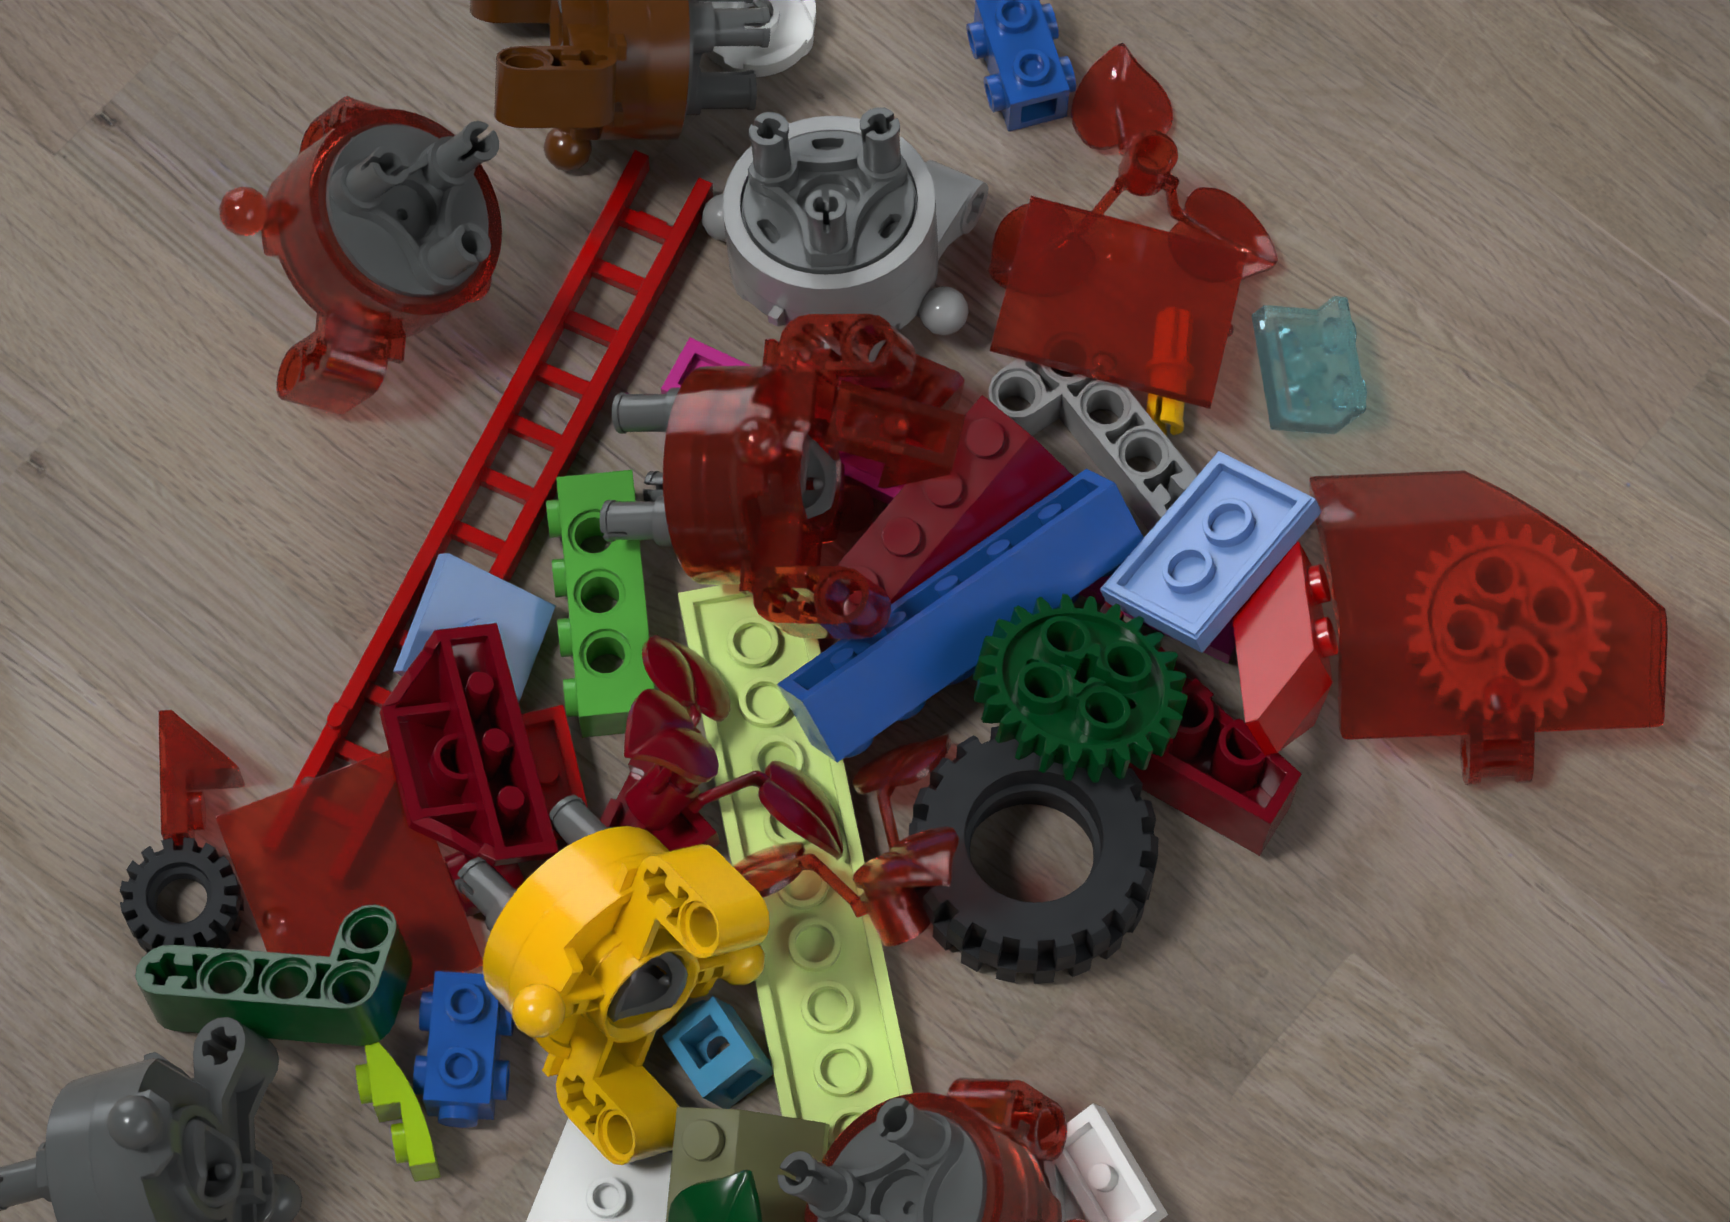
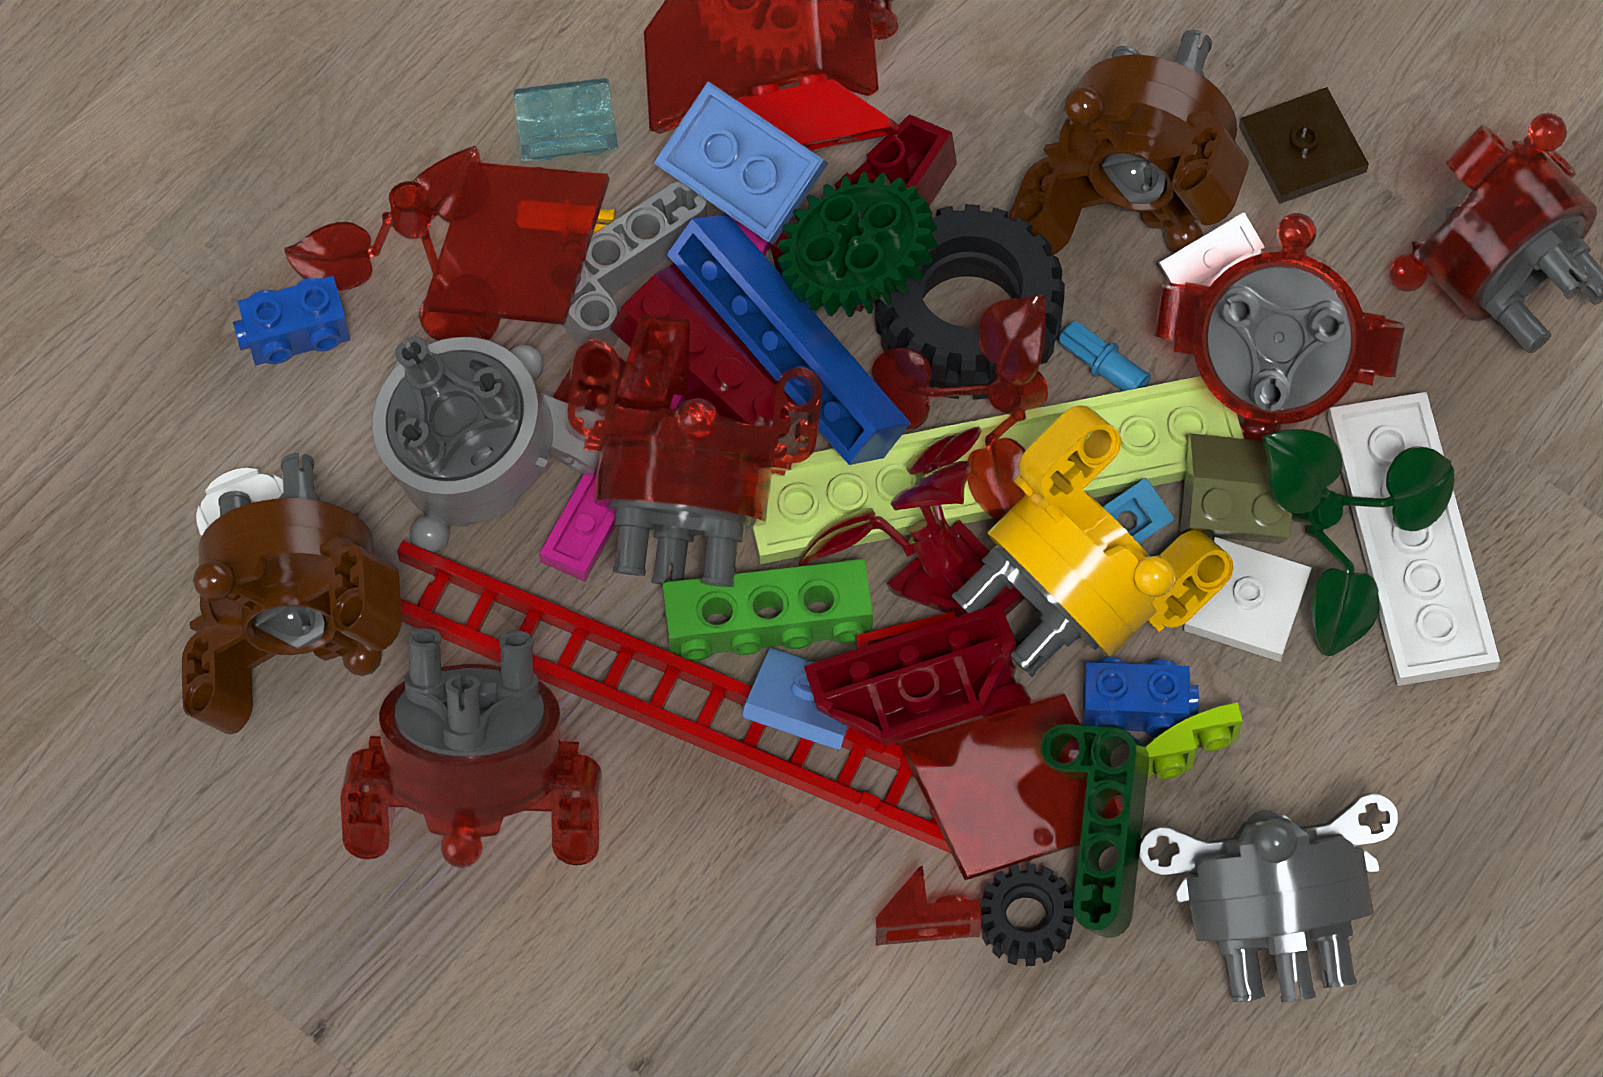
camera: 90 degrees left, 5 degrees down
(960, 1033) = (1103, 358): none -> dark azure axle
(1248, 1068) = (1142, 139): none -> reddish brown piece

